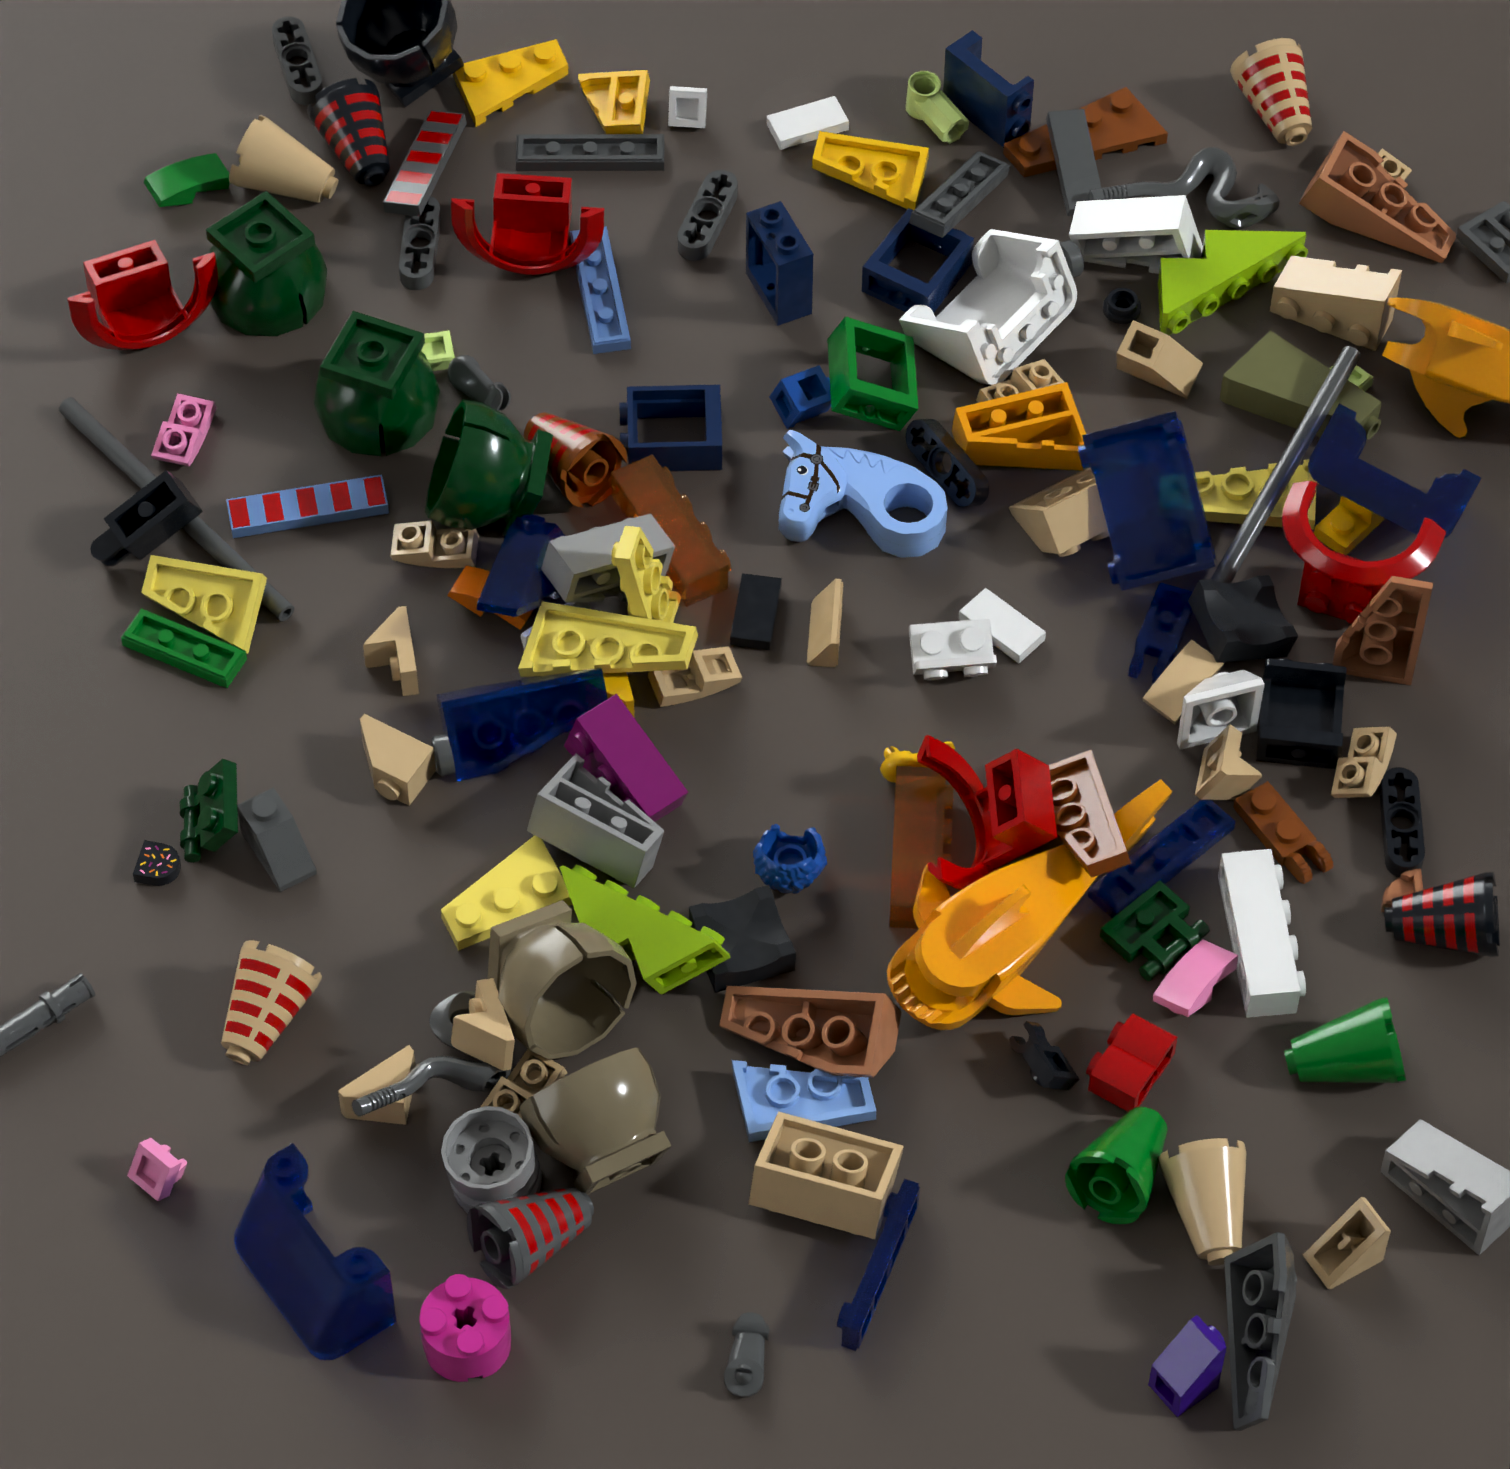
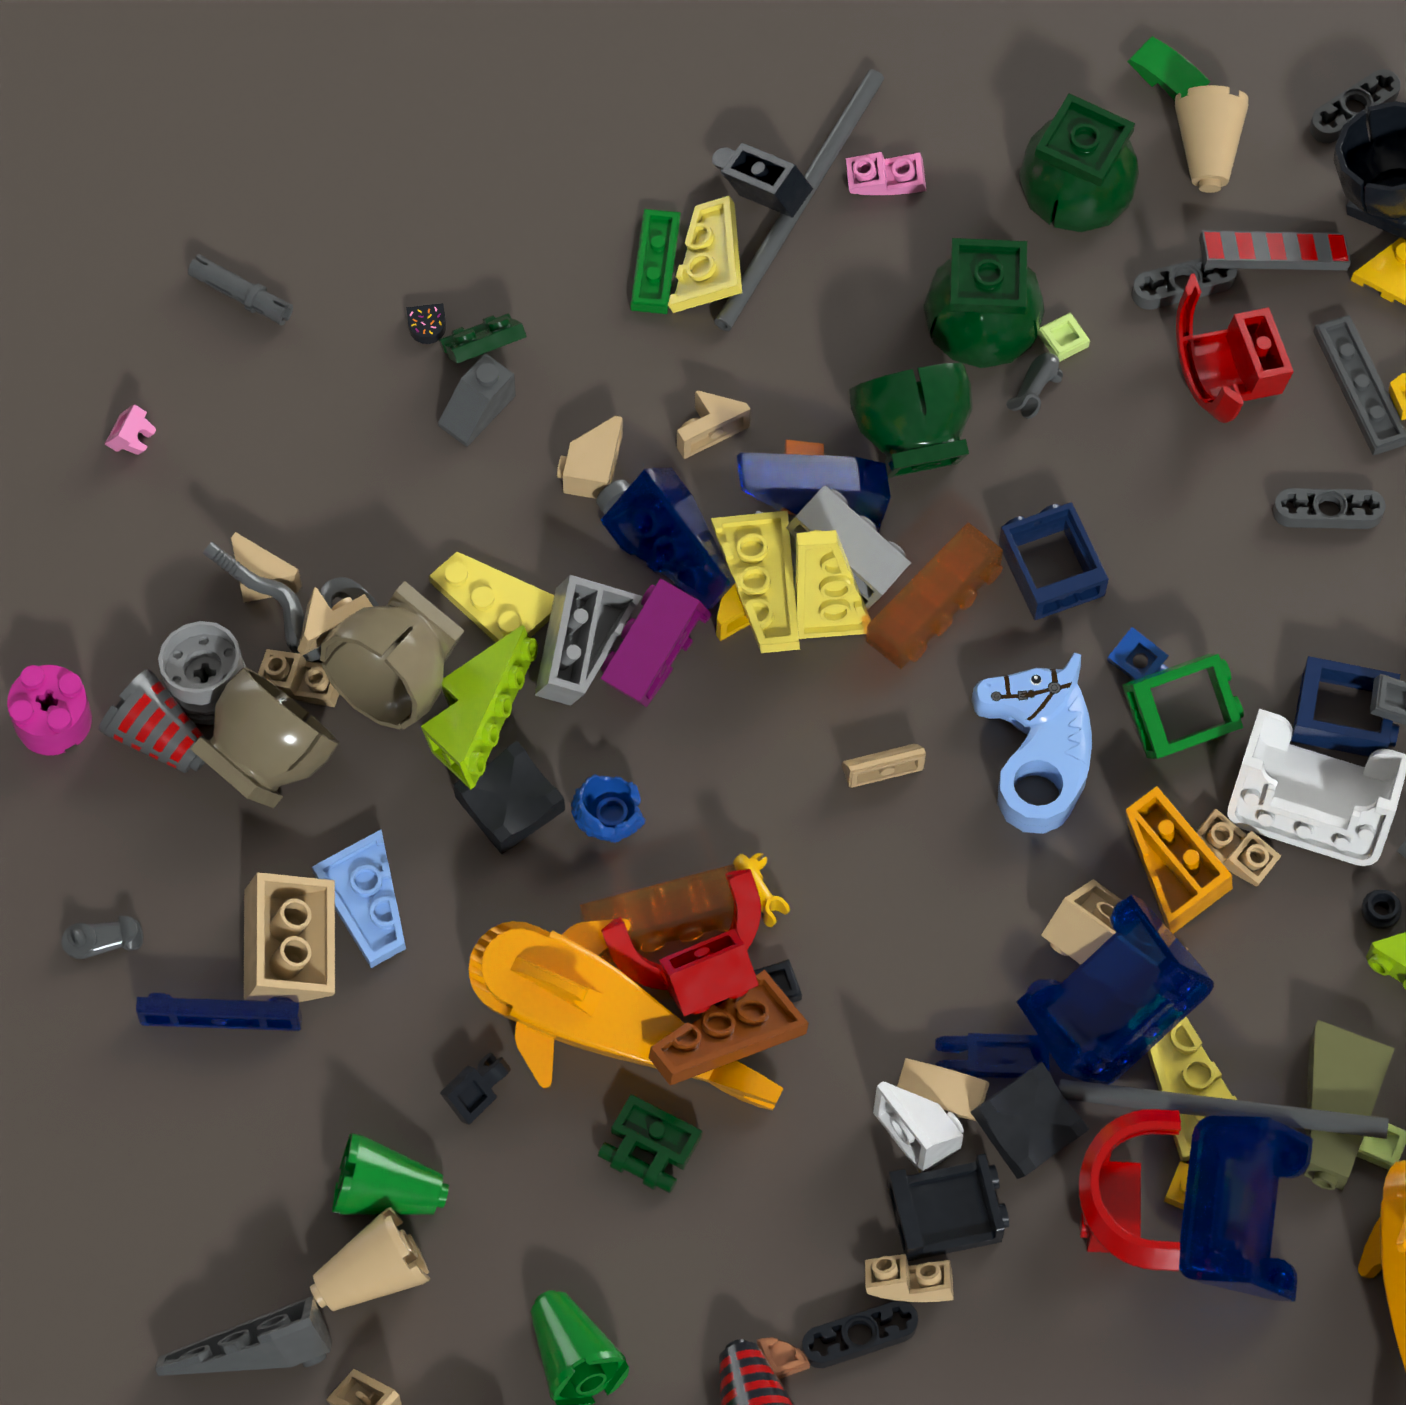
camera: 70 degrees right, 10 degrees up
(137, 298) = (1006, 84): red piece -> none
(264, 999) = (310, 447): tan cone -> none
(307, 506) = (845, 299): medium blue tile -> none
(322, 1297) = (103, 530): clear blue windscreen -> none
(353, 127) = (1279, 179): black cone -> none
(426, 546) = (836, 409): tan slope -> none
(579, 458) = (977, 487): dark orange cone -> none
(602, 298) = (1196, 449): medium blue tile -> none
(706, 674) = (786, 675): tan slope -> none
(755, 611) = (878, 699): black tile -> none
(781, 260) = (1272, 585): dark blue window -> none
(821, 1028) = (437, 892): nougat wedge -> none
(951, 648) = (896, 876): white bracket -> none
(961, 468) = (1112, 806): black beam -> none
(1009, 628) = (948, 913): white tile -> none
(1131, 1062) = (497, 1162): red brick -> none
(1158, 359) = (1317, 956): tan slope -> none
(1163, 856) = (737, 1129): clear blue plate -> none
(1189, 1366) = (190, 1296): dark purple slope -> none
(1192, 978) = (606, 1189): bright pink slope -> none
(1222, 770) = (841, 1149): tan slope -> none
(1260, 933) = (679, 1235): white brick -> none
(1282, 831) = (809, 1226): dark orange hinge -> none
(1387, 633) = (1052, 1260): nougat wedge -> none

